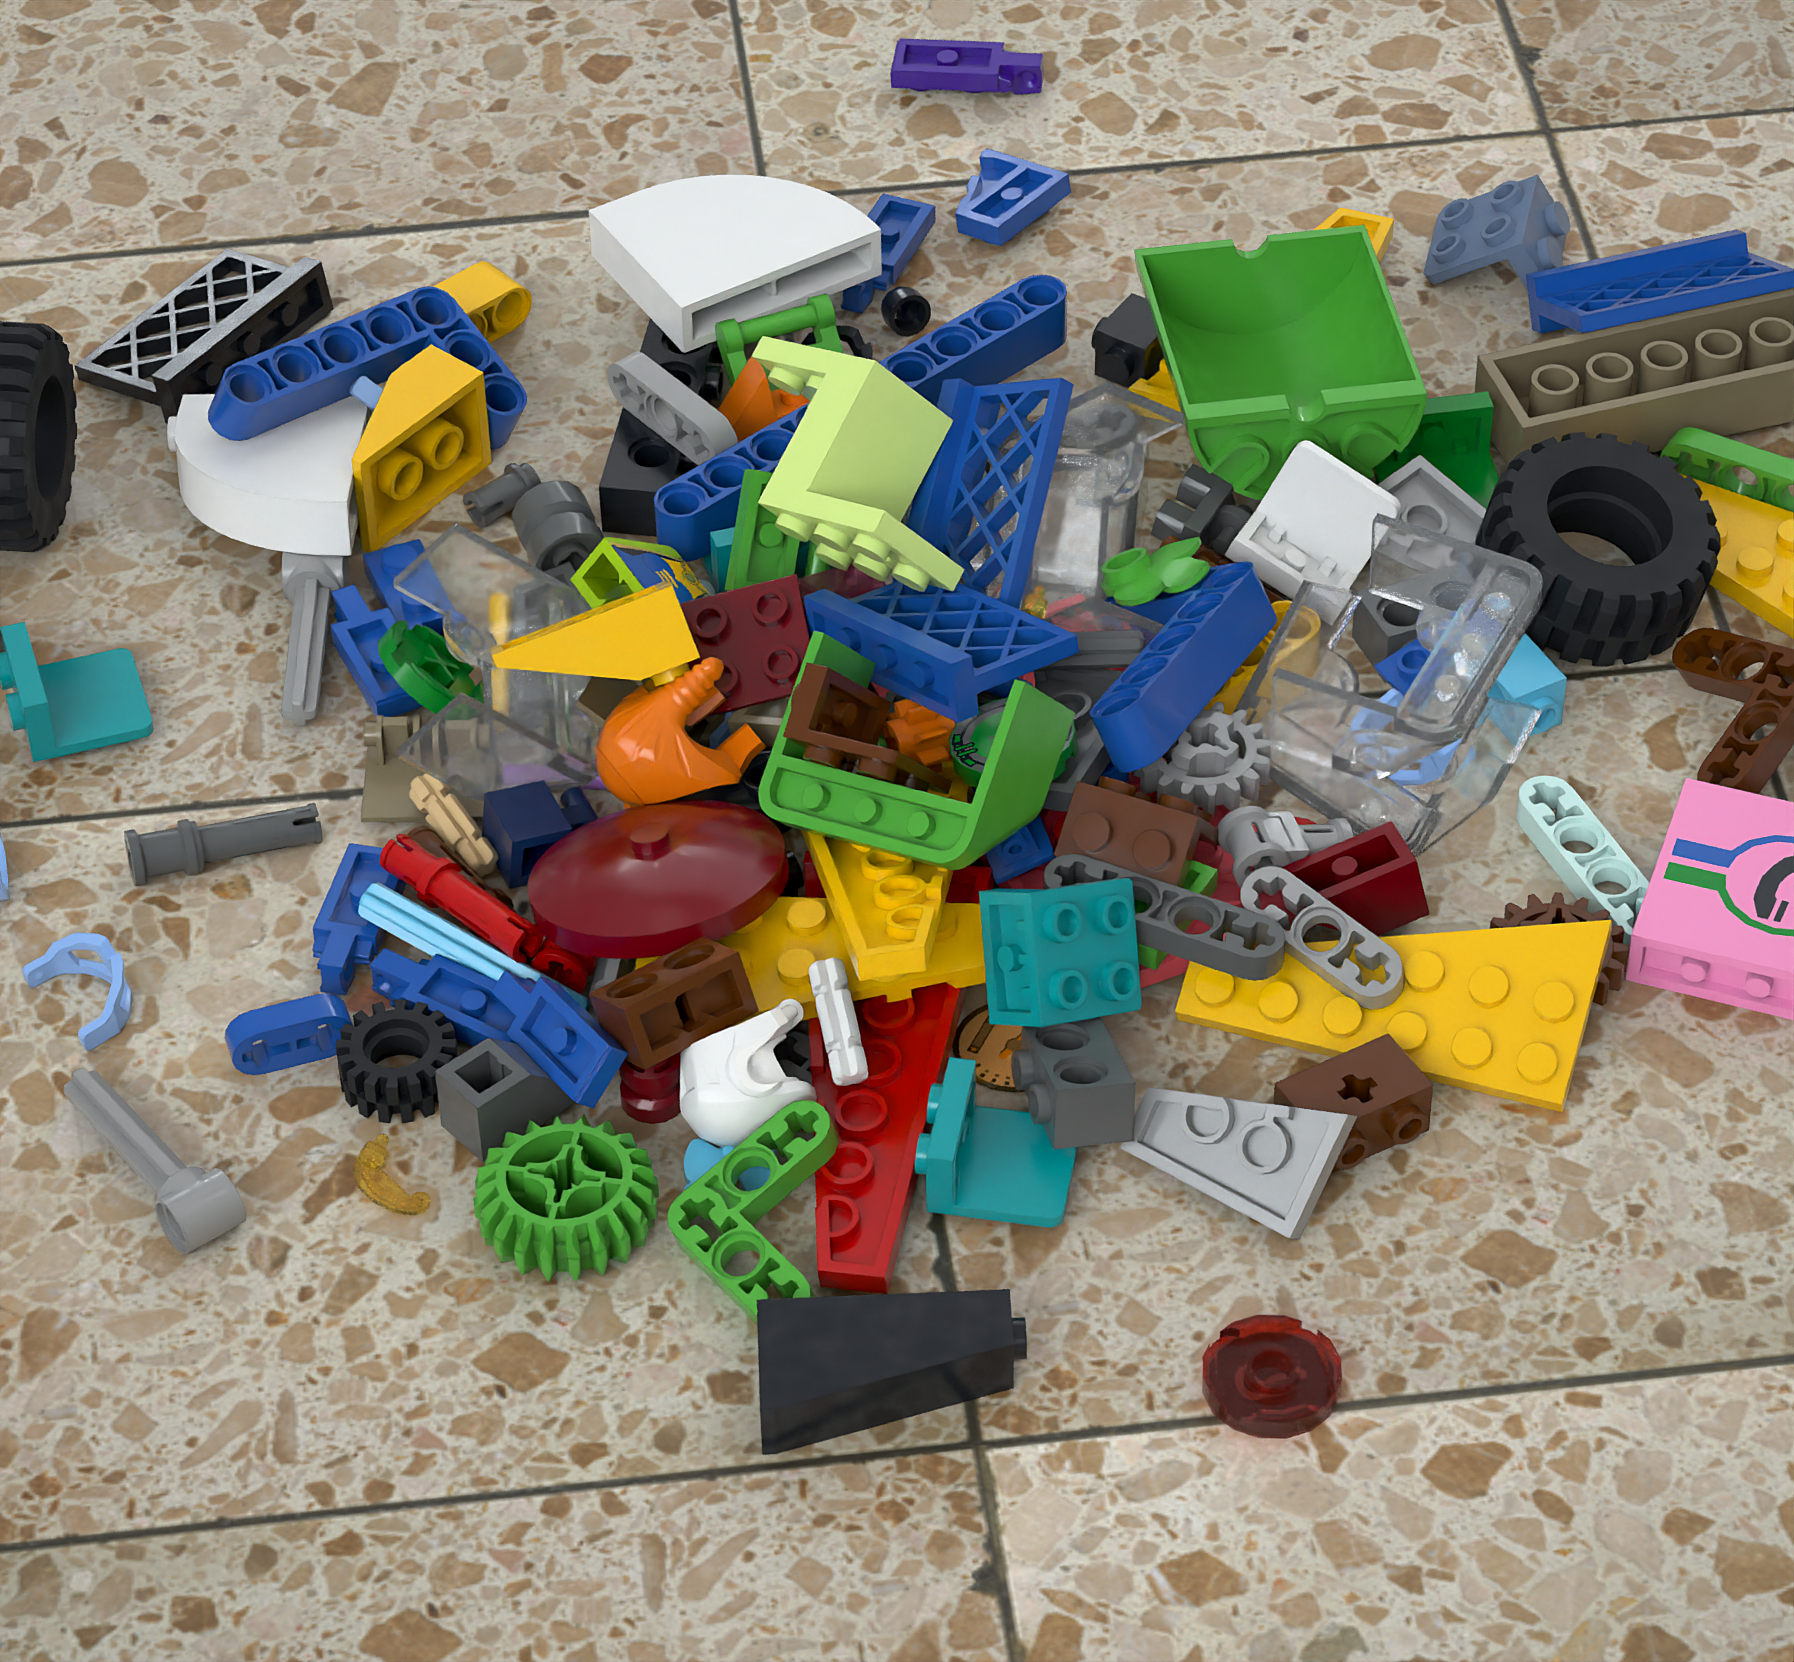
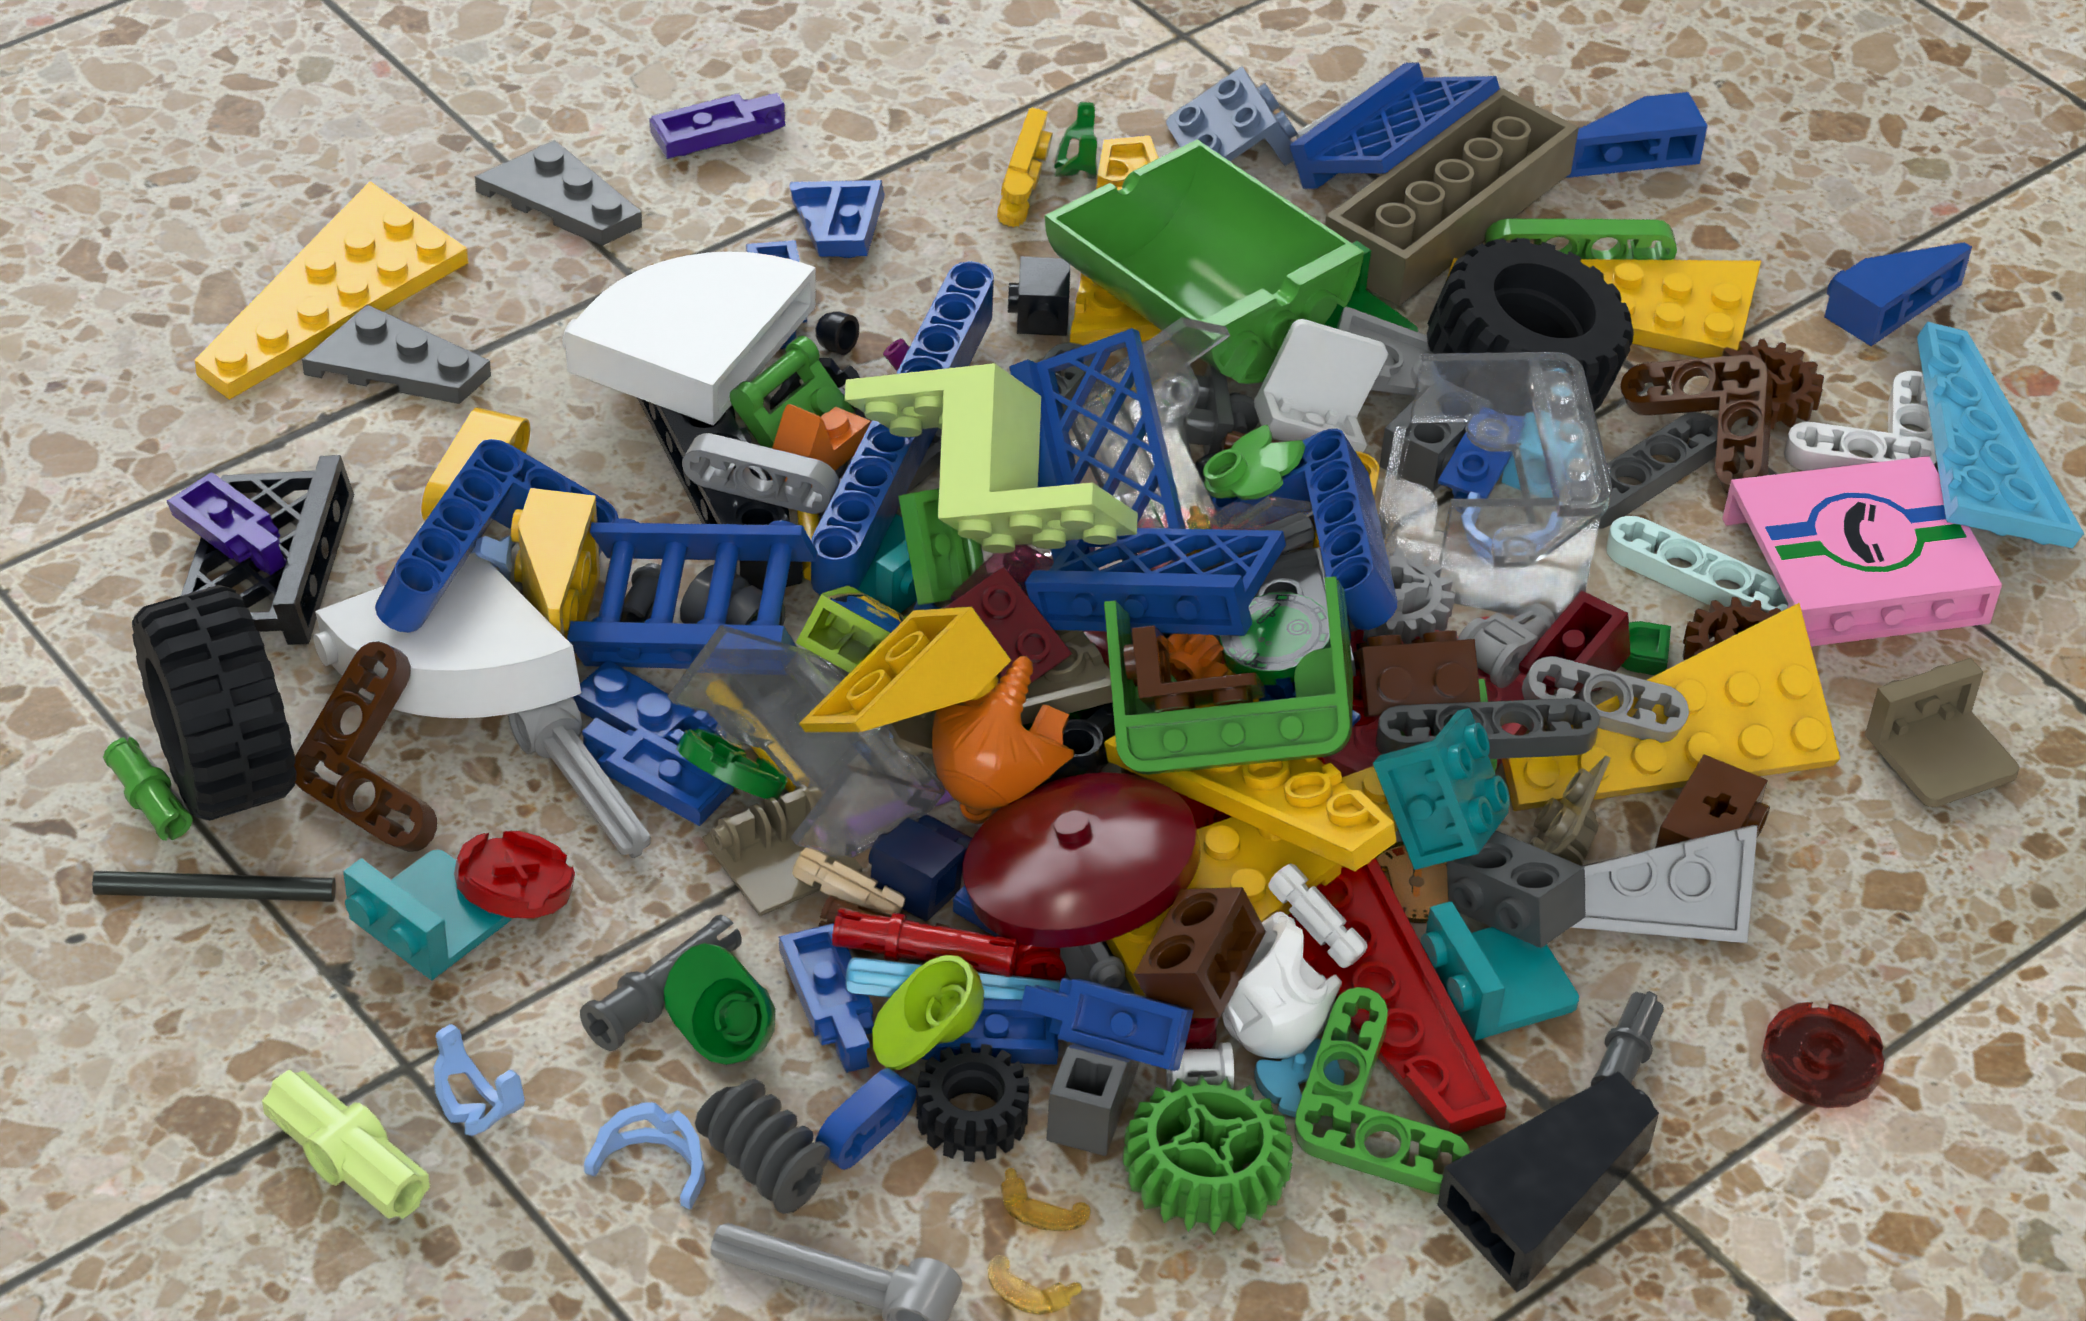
camera: 35 degrees left, 0 degrees up
(101, 524) = (345, 752): none -> reddish brown beam
(172, 697) = (514, 875): none -> red tile
(178, 1017) = (764, 1143): none -> dark grey piece
(181, 288) = (229, 522): none -> dark purple hinge
(241, 884) = (719, 1005): none -> green cap
(304, 1251) = (1026, 1296): none -> clear yellow piece
(409, 958) = (928, 1009): none -> lime cap
(476, 191) = (398, 353): none -> wing
(502, 101) = (365, 256): none -> yellow wing
(610, 476) = (658, 639): none -> blue fence
(647, 1124) = (1211, 1063): none -> white bush
(762, 87) = (564, 189): none -> wing
(1071, 1277) = (1630, 1041): none -> dark grey axle
(1188, 1051) = (1570, 824): none -> dark tan hinge
(1240, 201) = (1024, 168): none -> yellow hinge
(1296, 205) = (1083, 131): none -> green helmet
(1460, 909) = (1648, 648): none -> green tile
(1629, 733) = (1658, 475): none -> dark grey beam
(1689, 1121) = (1934, 737): none -> dark tan bracket

